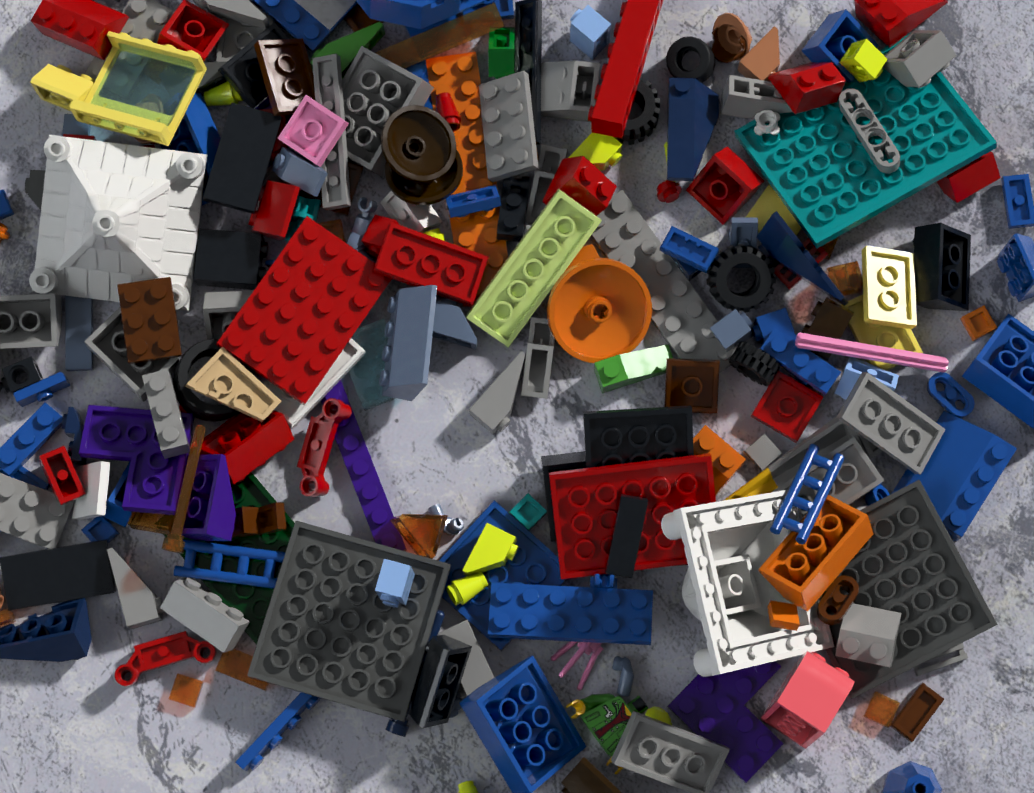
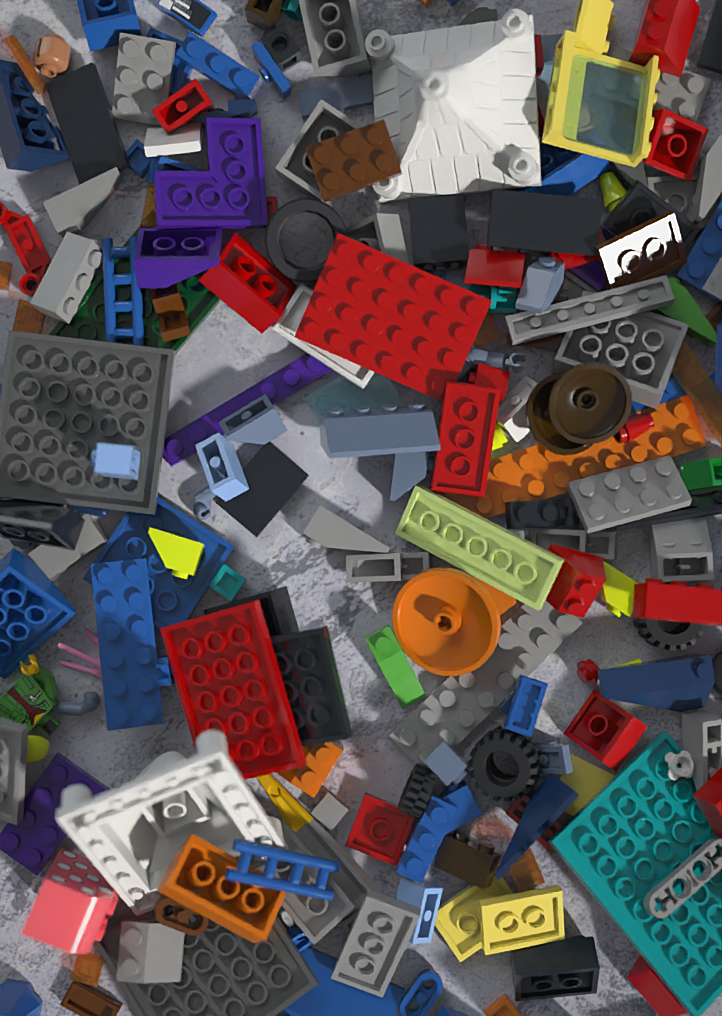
camera: 75 degrees right, 10 degrees up
(166, 413) = (256, 196): light grey brick -> none
(174, 540) = (128, 231): clear orange piece -> none
(233, 385) = (298, 259): tan wing -> none
(313, 130) = (585, 290): bright pink plate -> none
(318, 446) = (256, 358): red plate -> none
(379, 458) = (254, 423): none -> sand blue slope
(416, 495) = (222, 467): none -> light blue brick
(421, 532) = (186, 480): clear orange slope -> none
(443, 465) = (271, 484): none -> black tile
(466, 588) = (136, 533): neon yellow cone -> none
(473, 201) = (540, 471): blue plate -> none
(626, 536) = (209, 689): black tile -> none
(692, 383) = (385, 728): reddish brown tile -> none
(783, 615) = (148, 865): orange tile -> none
(871, 352) = (448, 911): bright pink axle -> none

